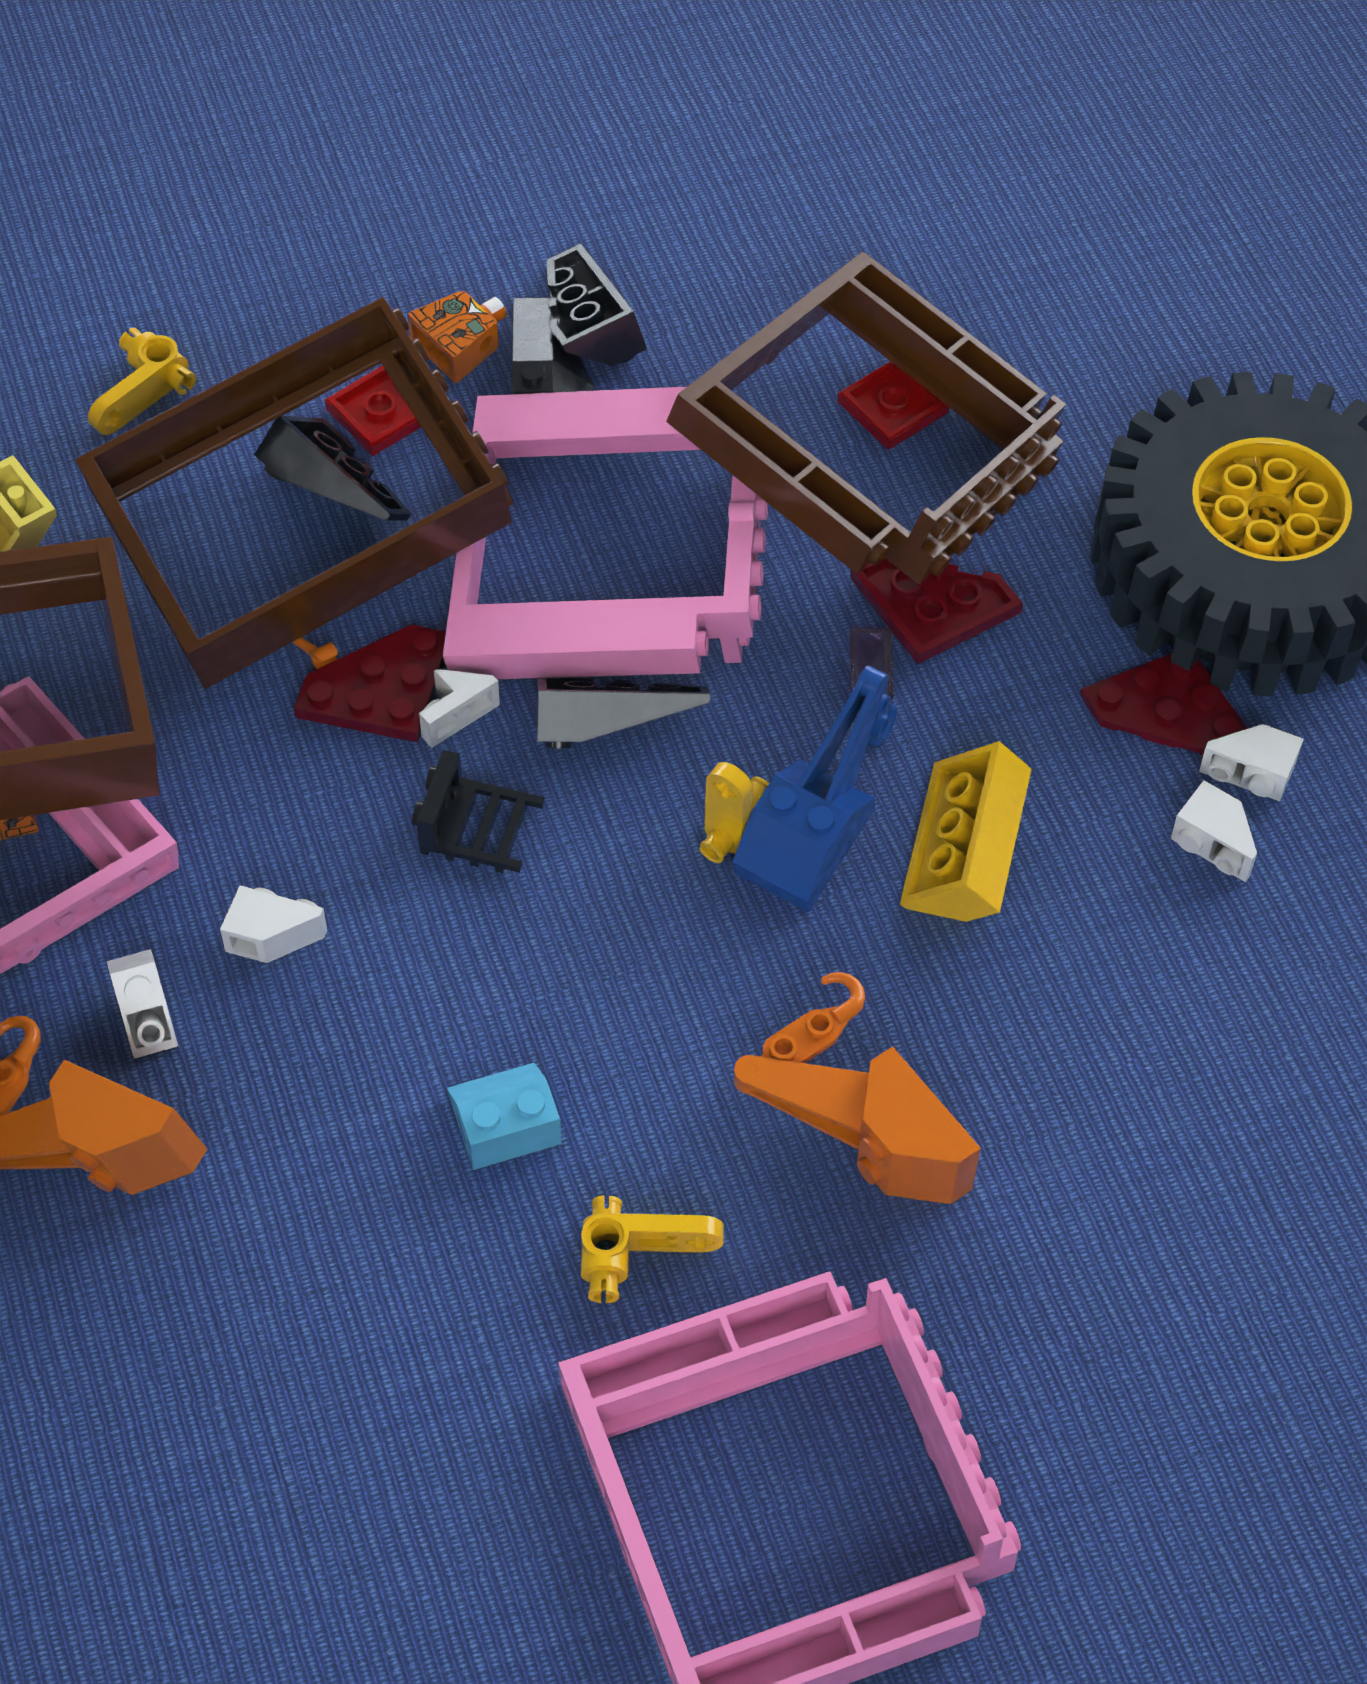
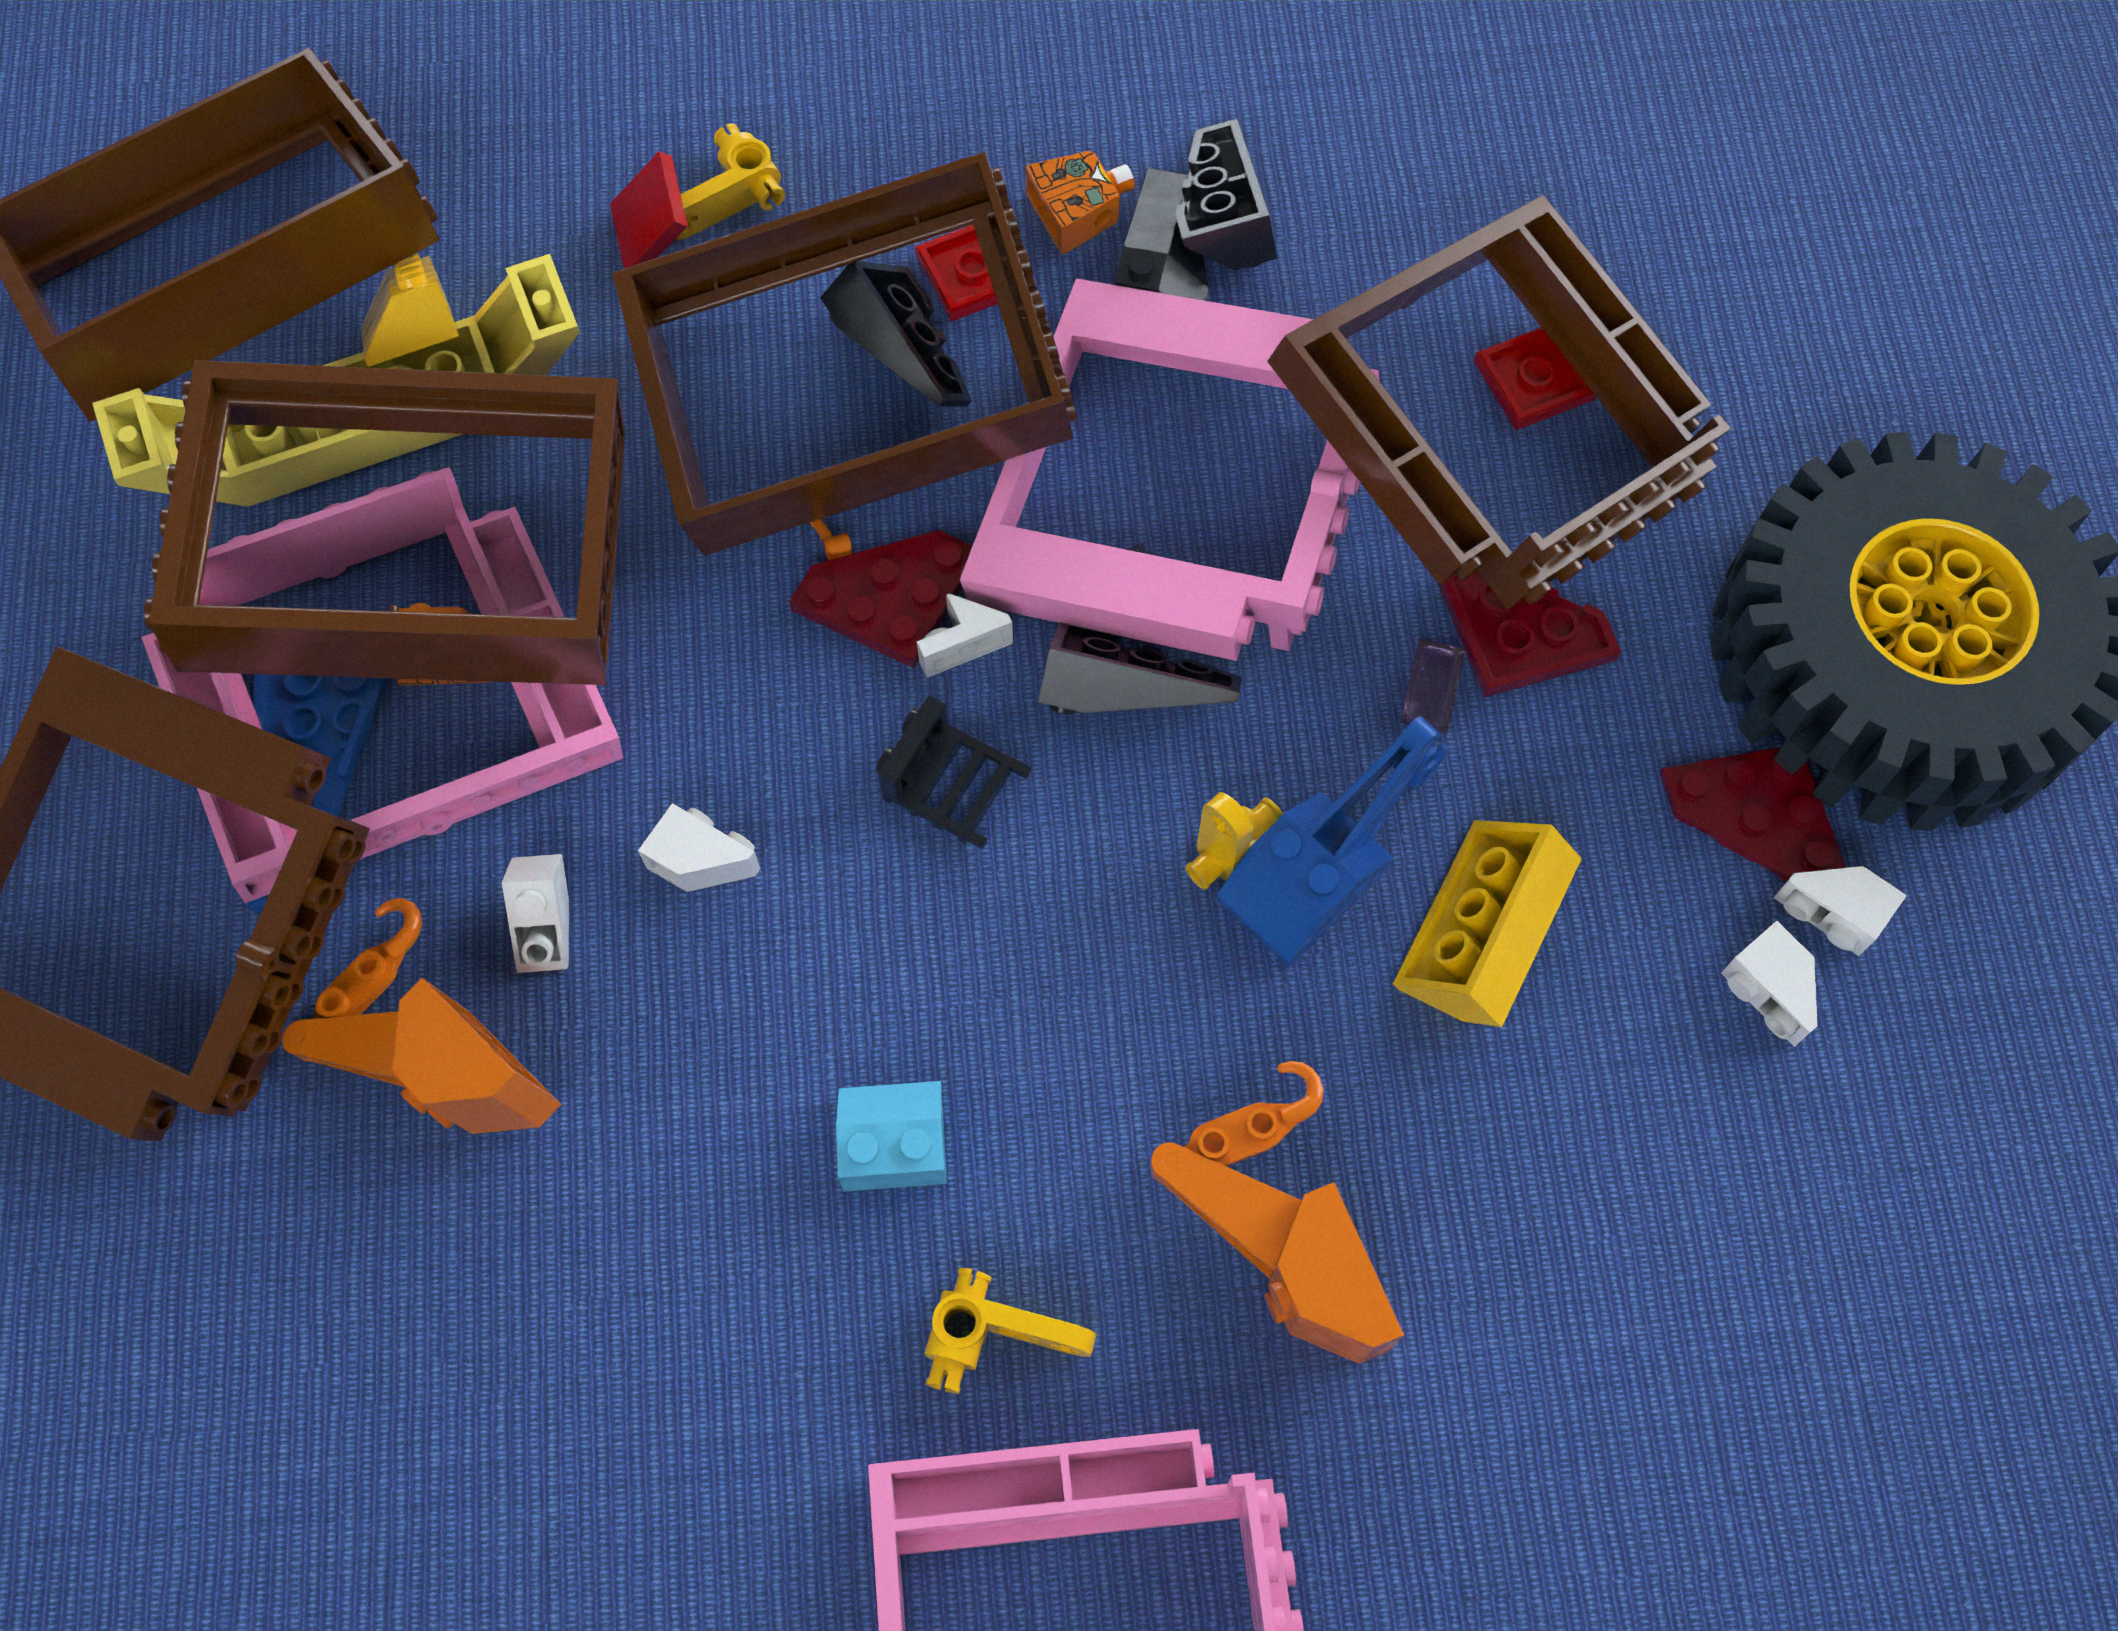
camera: 15 degrees right, 10 degrees up
(79, 414) = (649, 212): none -> red tile

